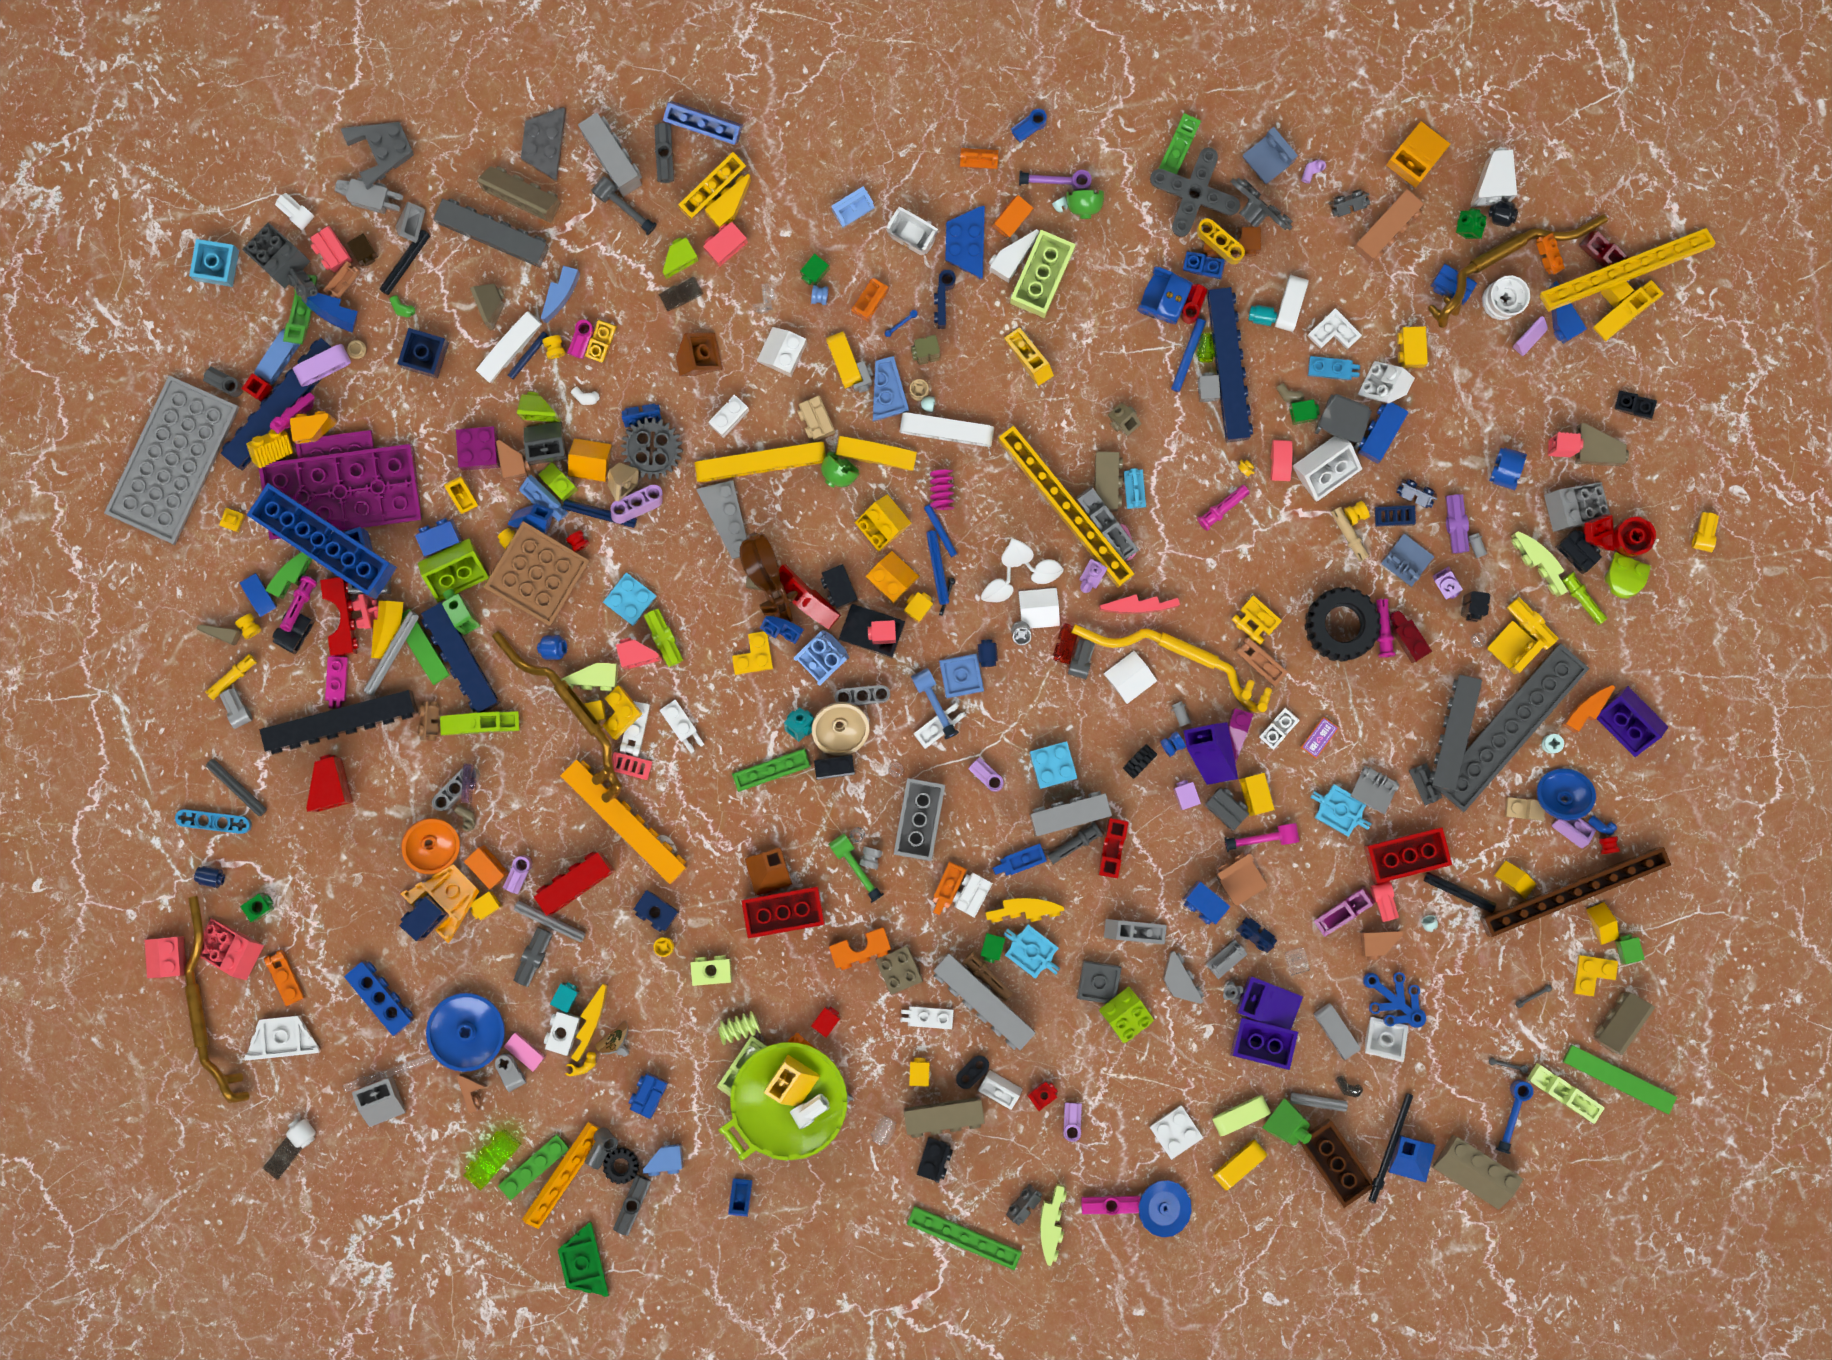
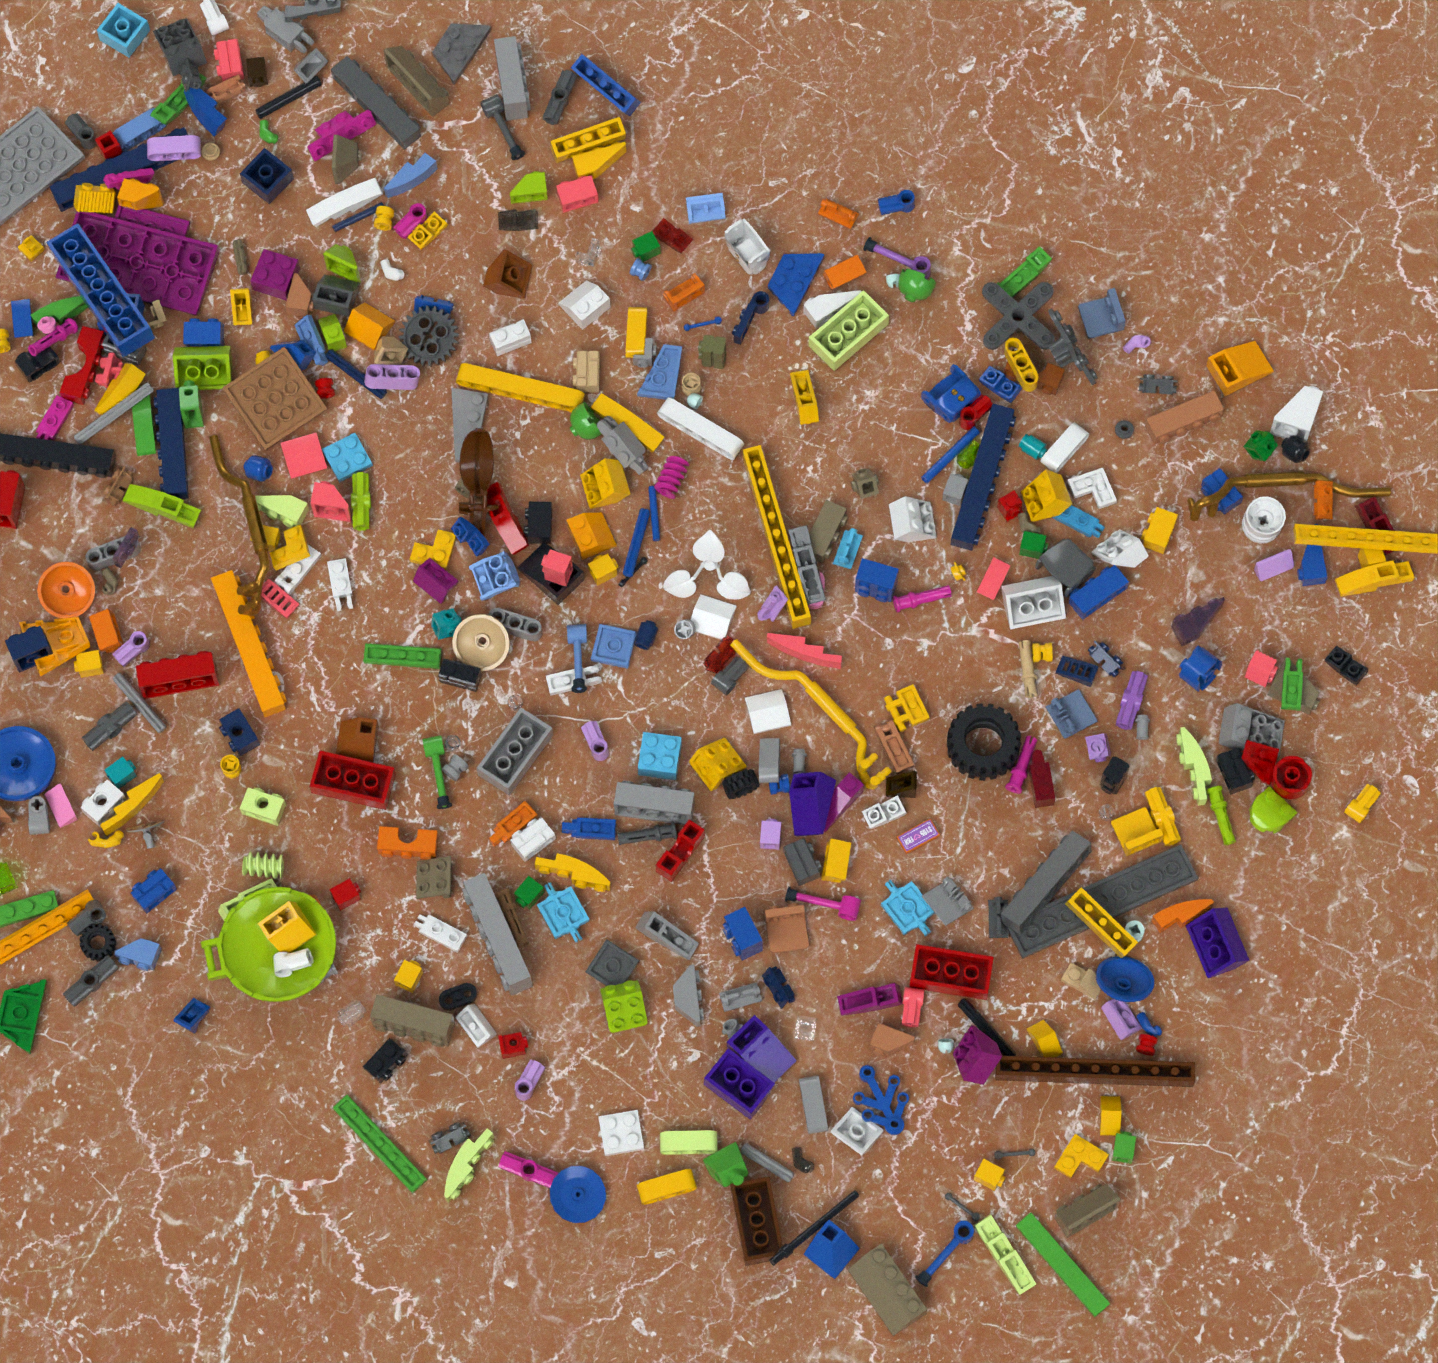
camera: 25 degrees right, 15 degrees down
(286, 594) = (47, 324): none -> bright pink plate
(383, 533) = (157, 310): none -> tan bracket
(435, 443) = (240, 257): none -> dark tan axle
(470, 273) = (340, 125): none -> dark pink bracket
(588, 615) = (303, 455): none -> coral slope
(768, 685) = (434, 580): none -> magenta panel
(833, 248) = (671, 236): none -> clear red slope
(884, 478) = (623, 444): none -> light grey hinge
(1107, 748) = (716, 762): none -> yellow bracket
(1156, 727) = (769, 760): none -> light grey beam
(1177, 511) = (876, 580): none -> blue brick
(1182, 435) = (912, 520): none -> white slope
(1266, 383) = (1010, 506): none -> red brick
(1285, 696) = (902, 785): none -> dark brown slope
(1296, 360) = (1046, 496): none -> yellow slope
(1333, 265) = (1124, 434): none -> dark grey plate
(1465, 925) = (976, 1056): none -> magenta slope
(1484, 425) = (1192, 625): none -> clear purple slope
(1522, 1027) = (990, 1175): none -> yellow brick
(1525, 752) = (1101, 922): none -> yellow brick
(1601, 450) = (1292, 686): none -> bright green hinge

